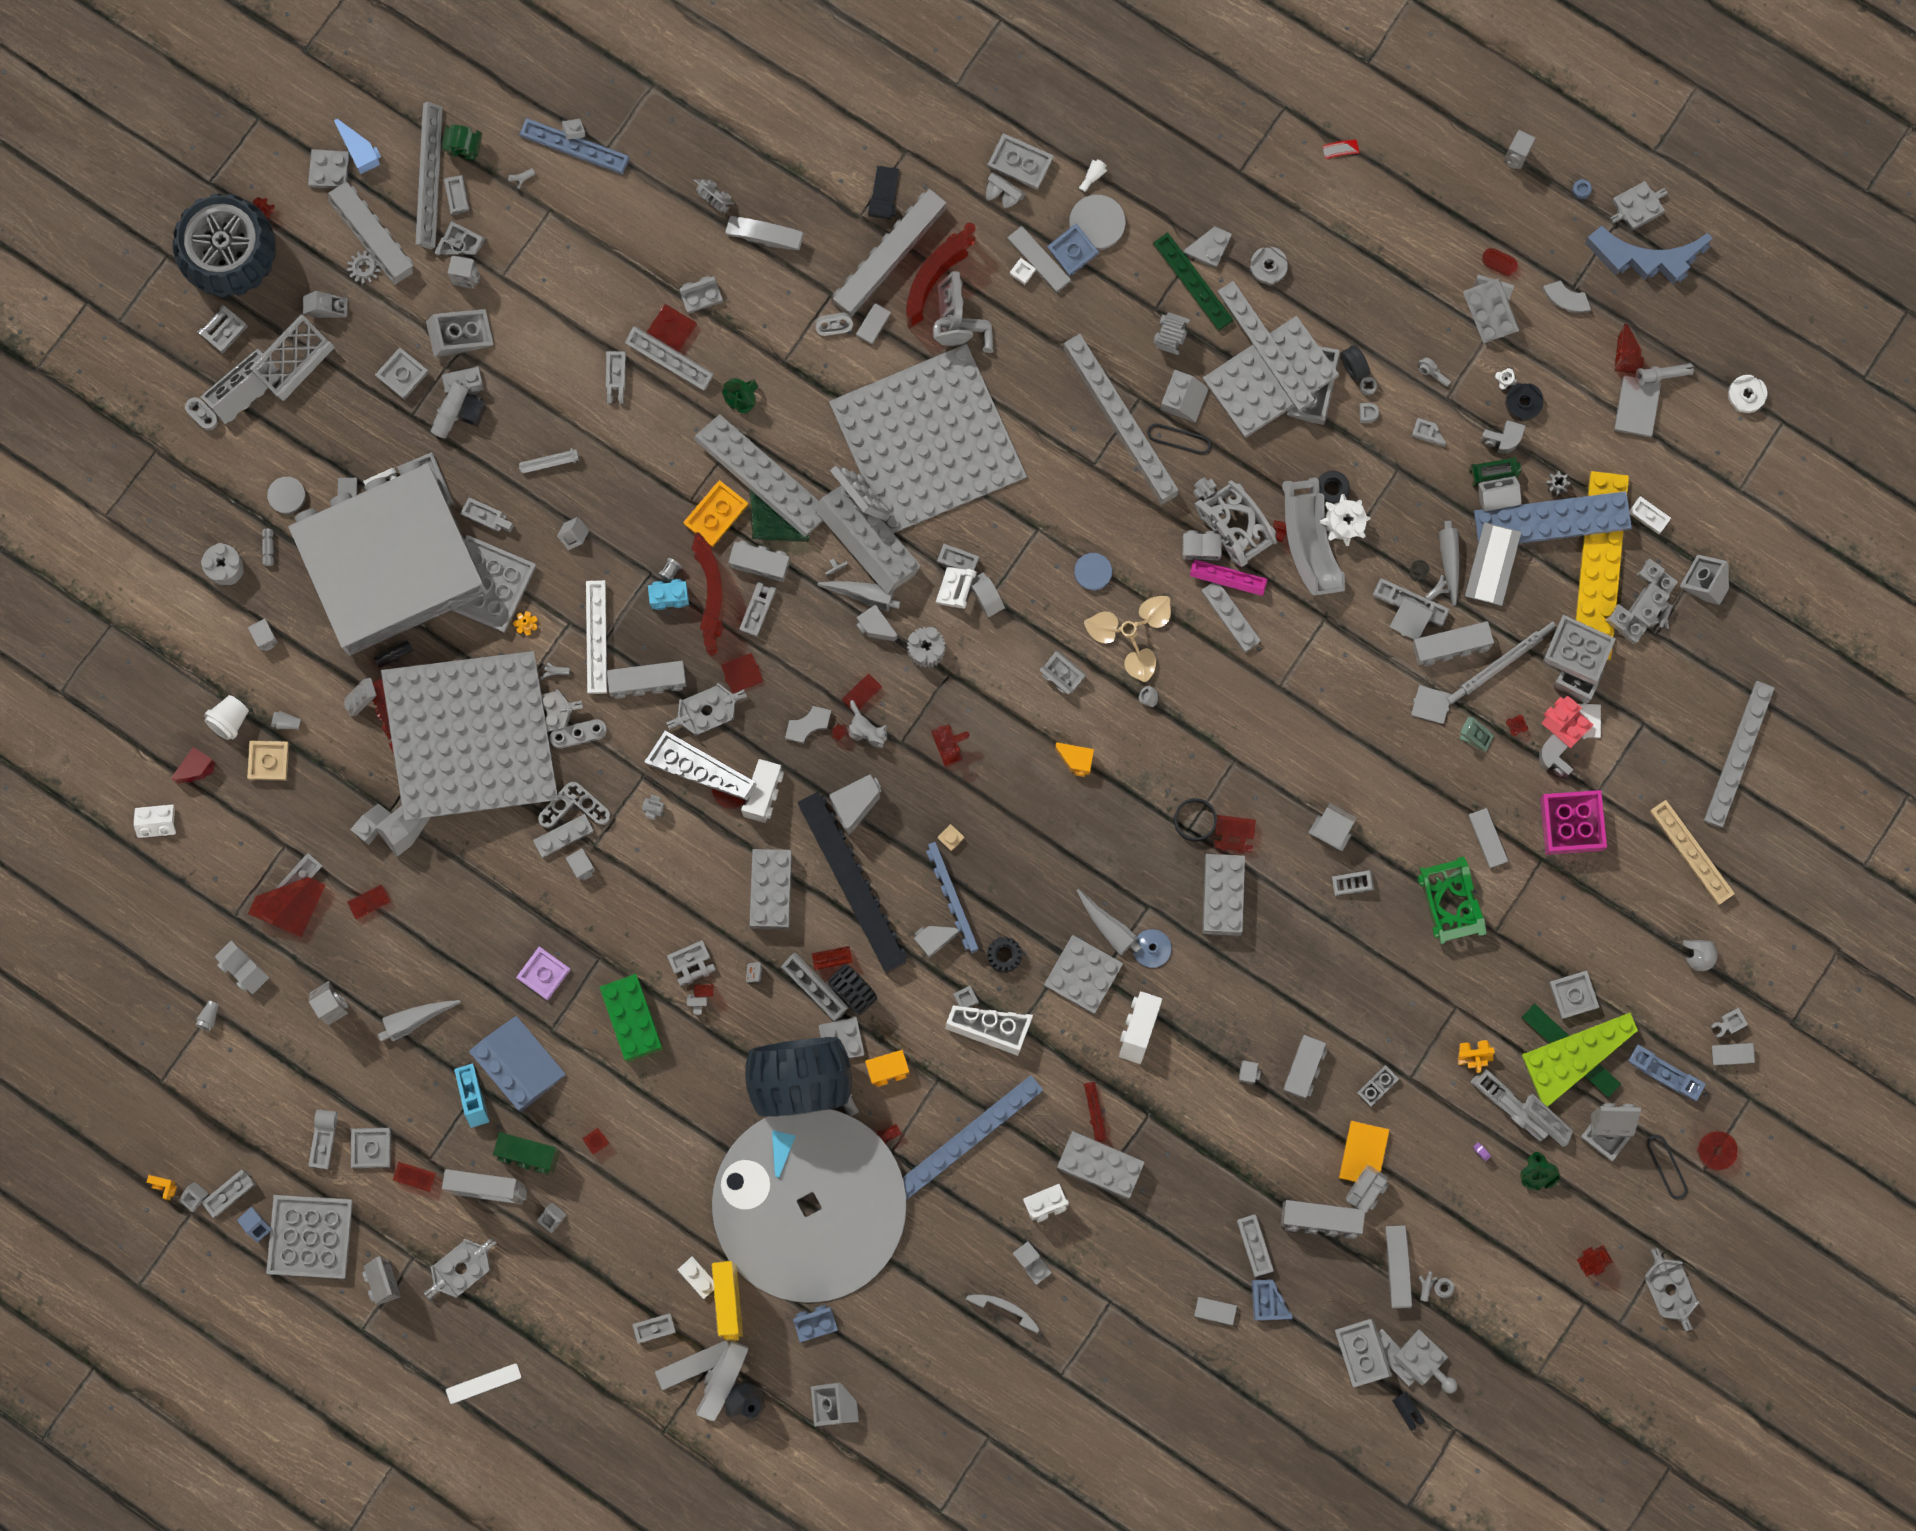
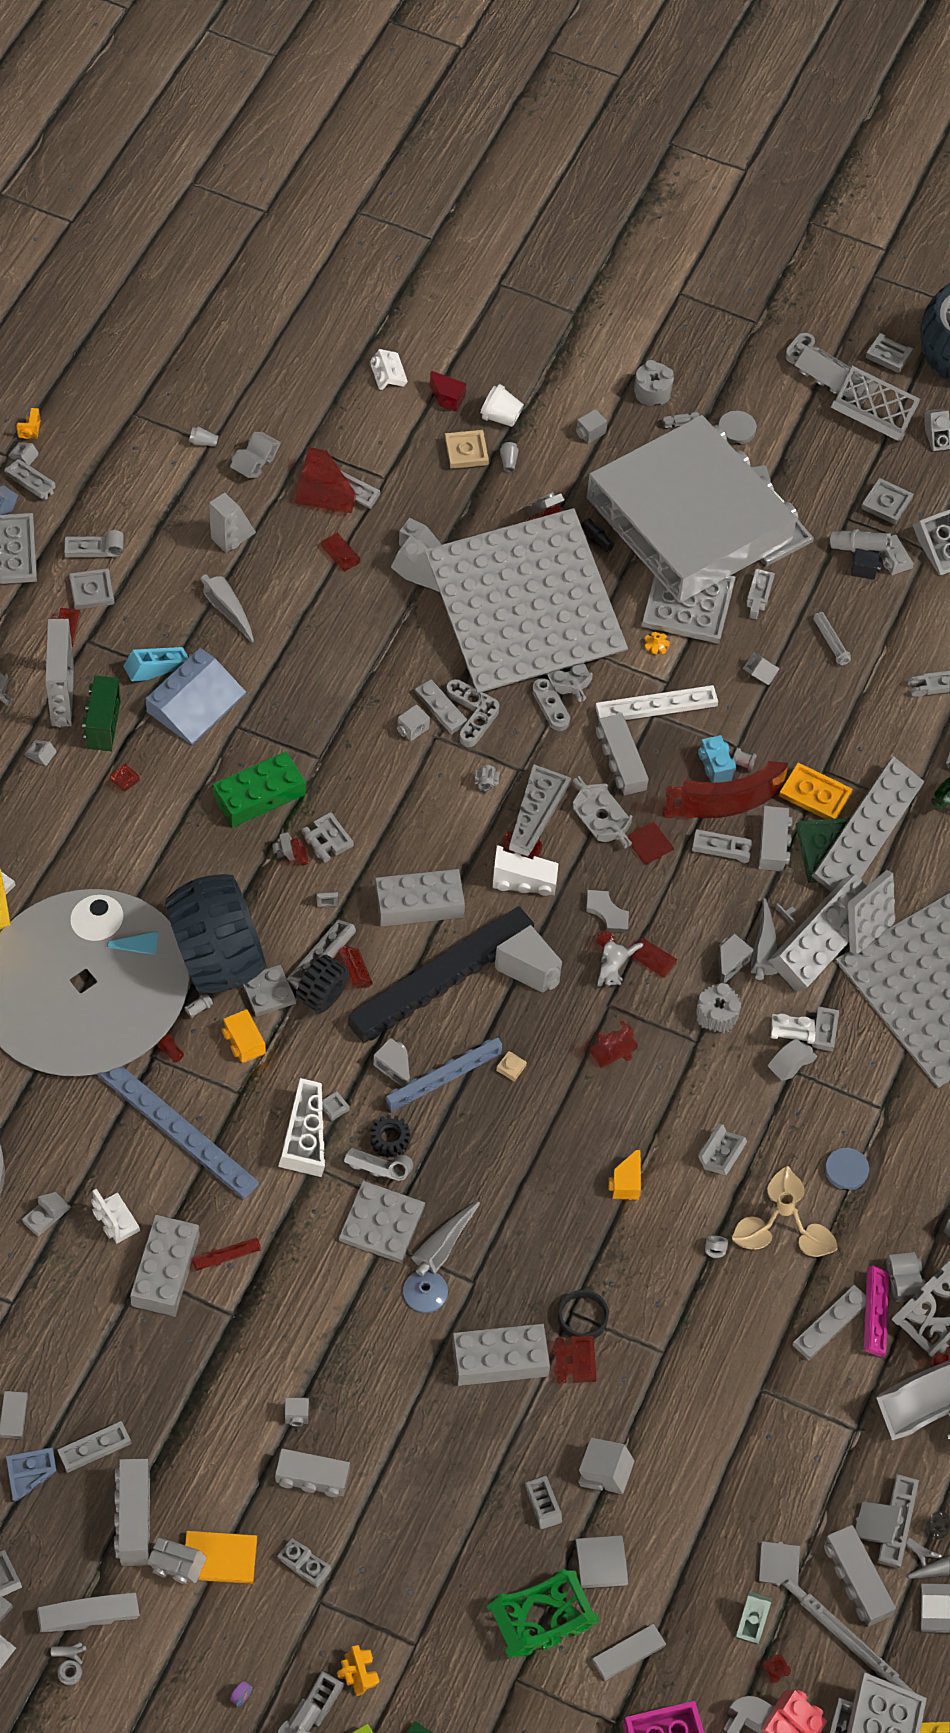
camera: 75 degrees right, 20 degrees down
(543, 973) = (294, 709): lavender tile -> none
(552, 670) = (612, 672): light grey bar -> none
(1039, 955) = (377, 1166): none -> light grey plate
(1139, 1027) = (331, 1283): white wedge -> none
(1411, 845) = (601, 1562): none -> light grey slope

